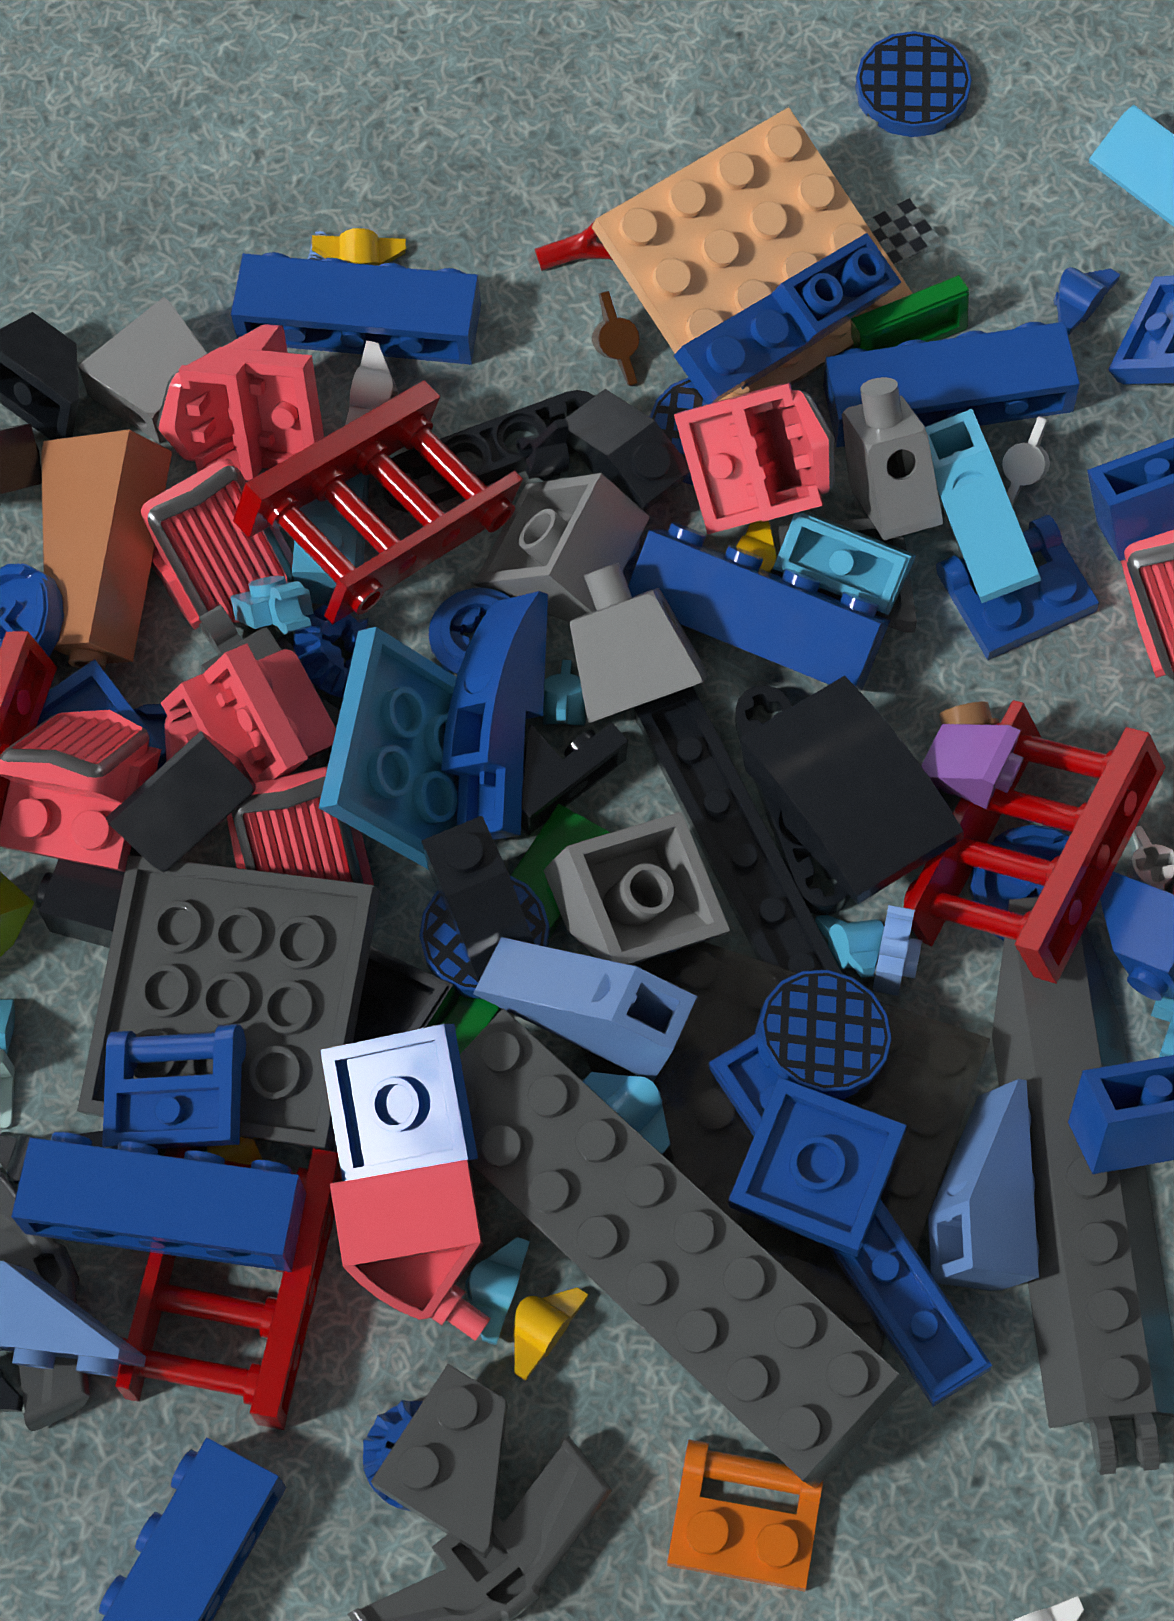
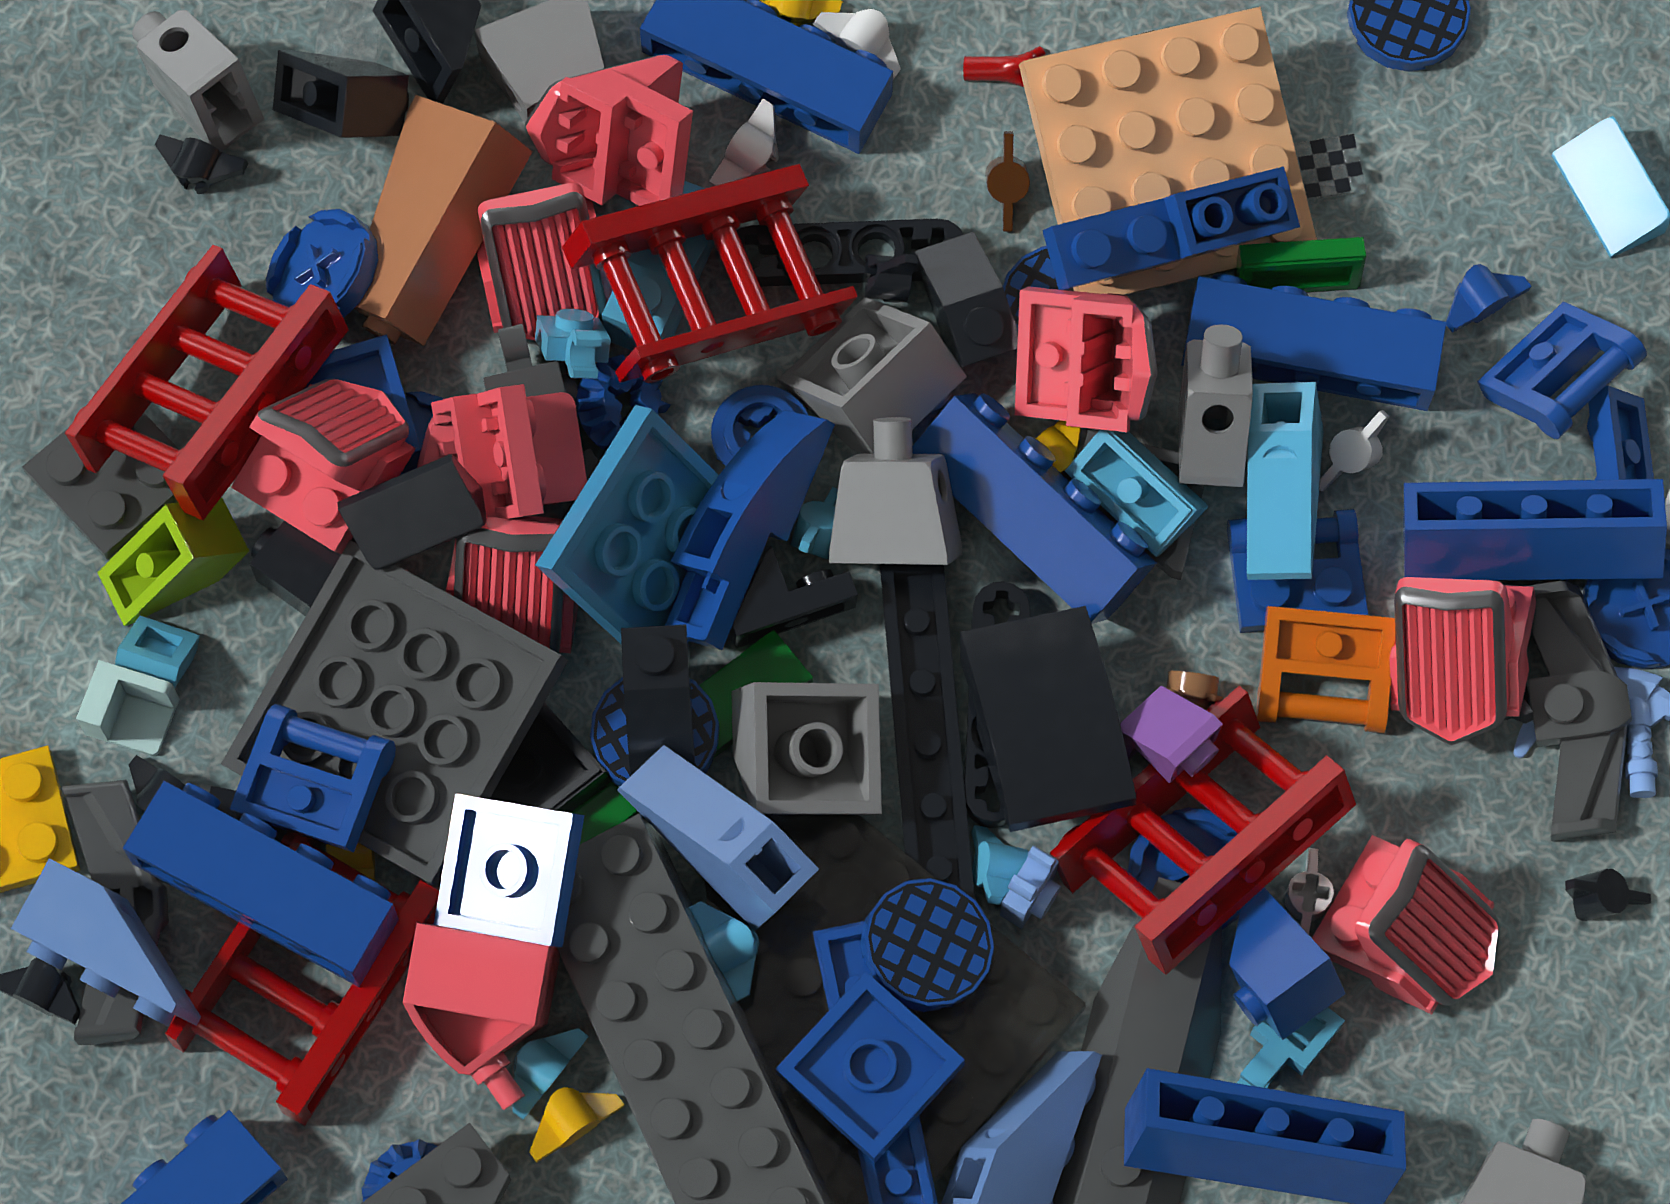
camera: 15 degrees right, 5 degrees up
(434, 253) = (861, 31): none -> white piece
(1077, 640) = (1328, 647): none -> orange plate

